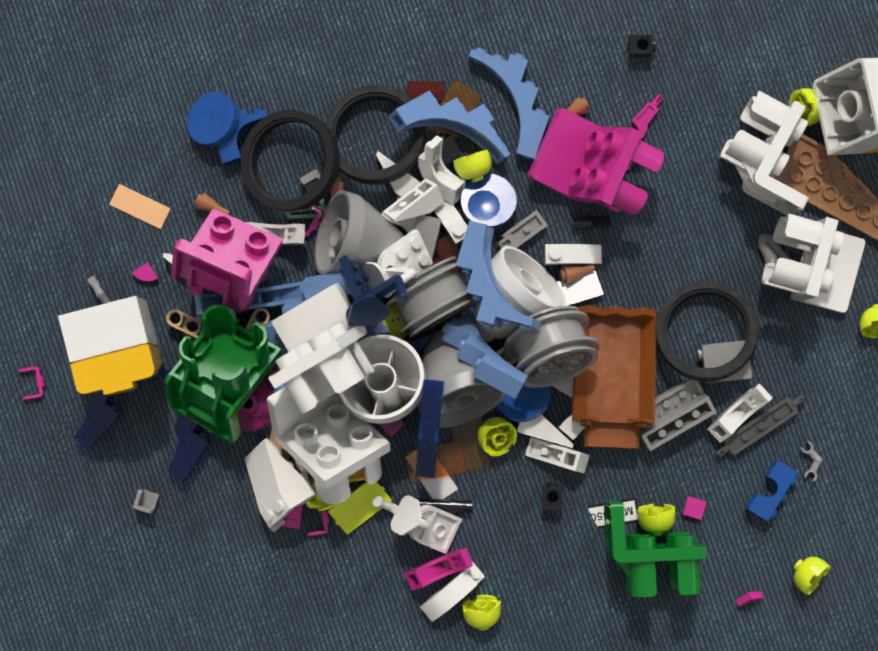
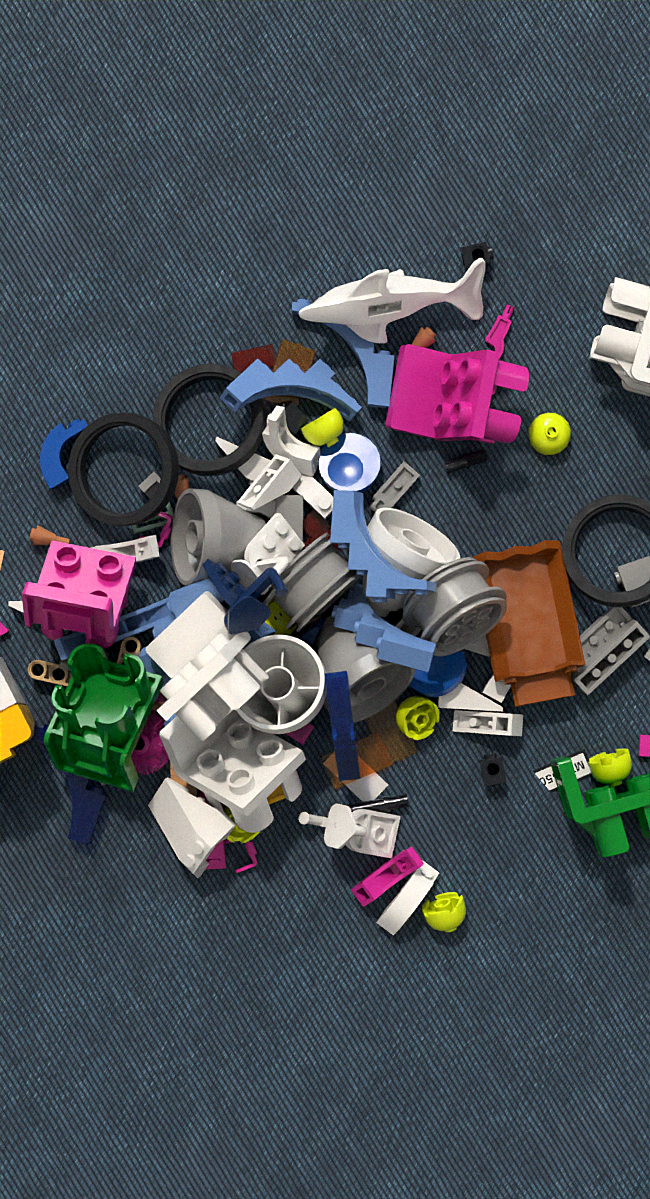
camera: 10 degrees left, 0 degrees up
(146, 501) = (52, 875): light grey panel -> none
(212, 119) = (28, 443): blue piece -> none
(358, 506) = (284, 829): neon yellow piece -> none
(550, 63) = (386, 297): none -> white animal
(570, 272) = (457, 521): nougat cone -> none
(572, 254) = (454, 500): white slope -> none
(581, 288) = (472, 534): white sticker -> none
(669, 223) = (552, 443): none -> neon yellow cylinder

